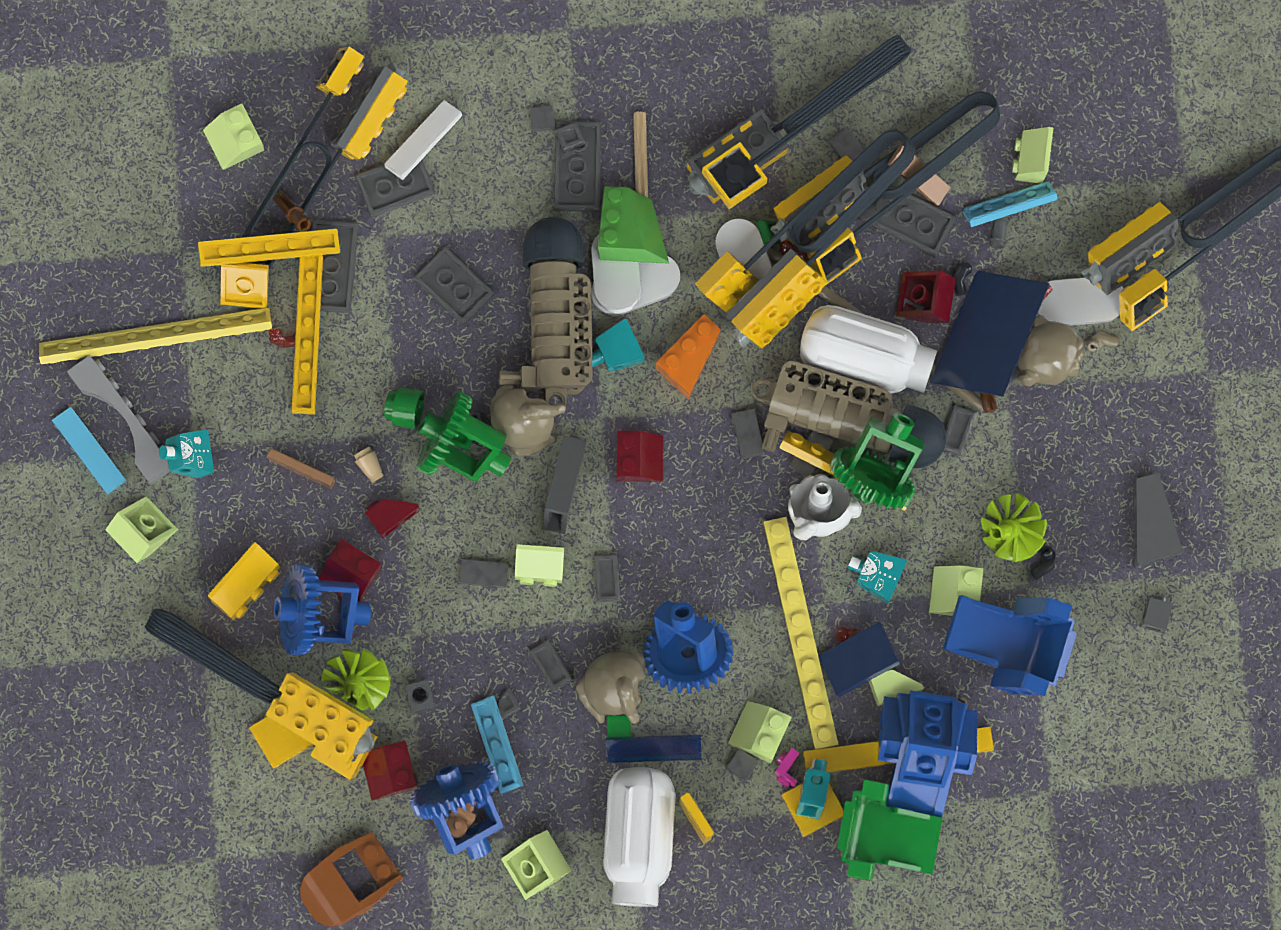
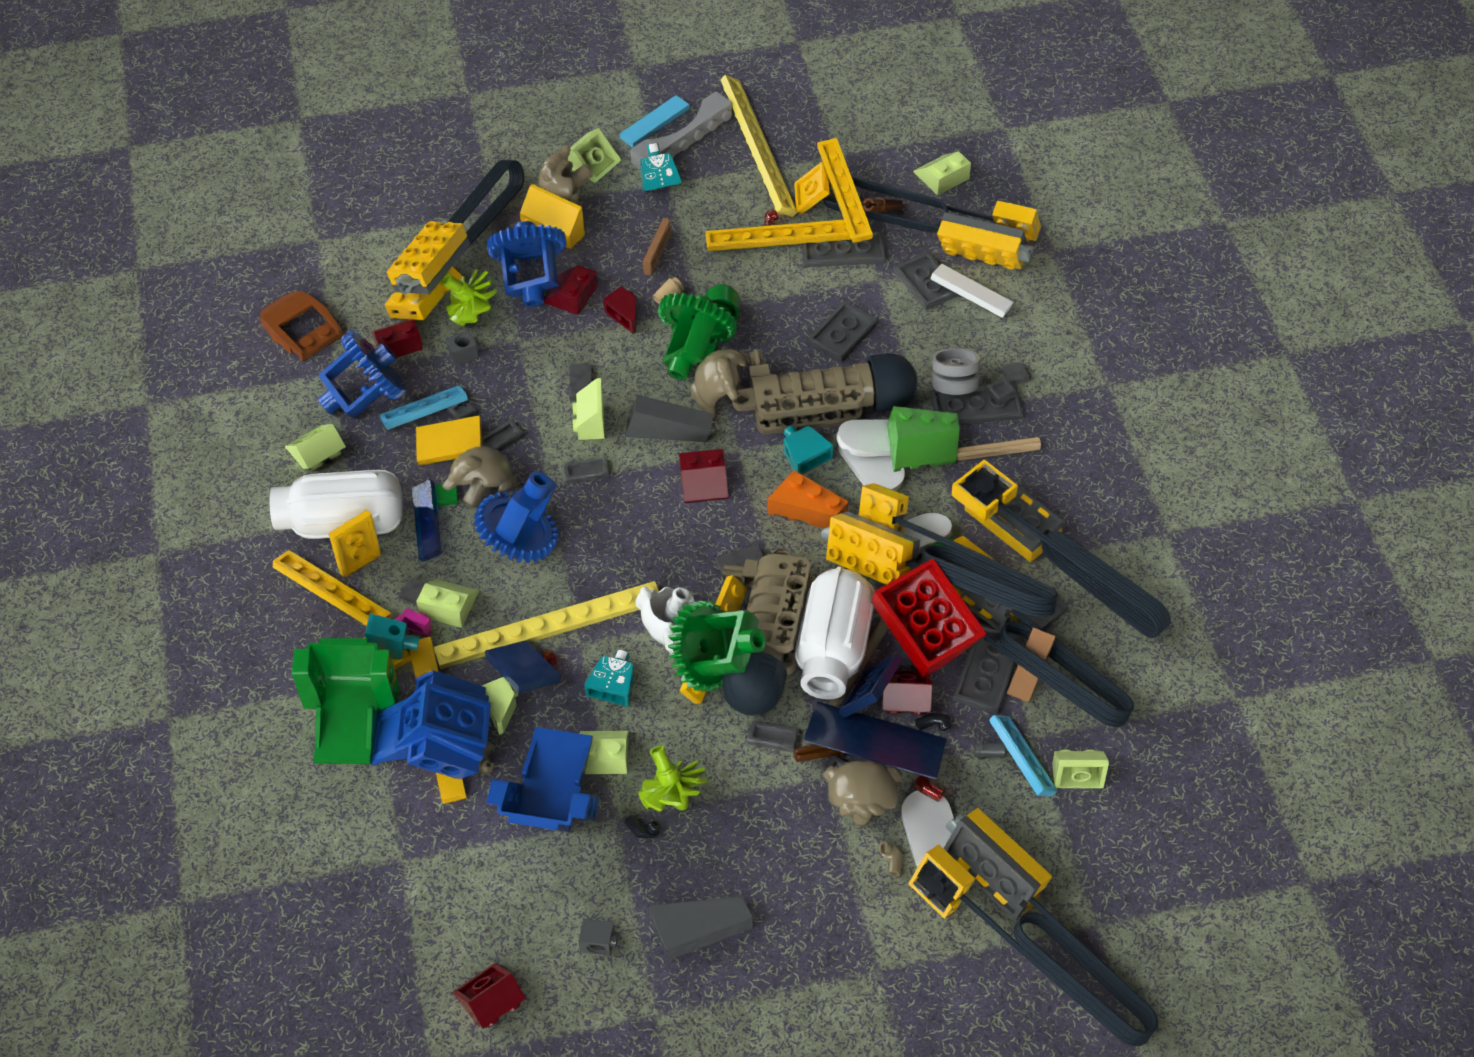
camera: 90 degrees right, 25 degrees down
(197, 566) = (559, 179): none -> dark tan piece
(461, 821) = (352, 381): medium nougat hips -> none
(545, 176) = (955, 371): none -> light grey wheel
(549, 719) = (447, 439): none -> yellow tile
(732, 850) = (328, 587): none -> yellow plate
(874, 258) = (927, 617): none -> red slope
(932, 326) = (870, 685): none -> dark blue tile
(1202, 717) = (490, 995): none -> dark red slope

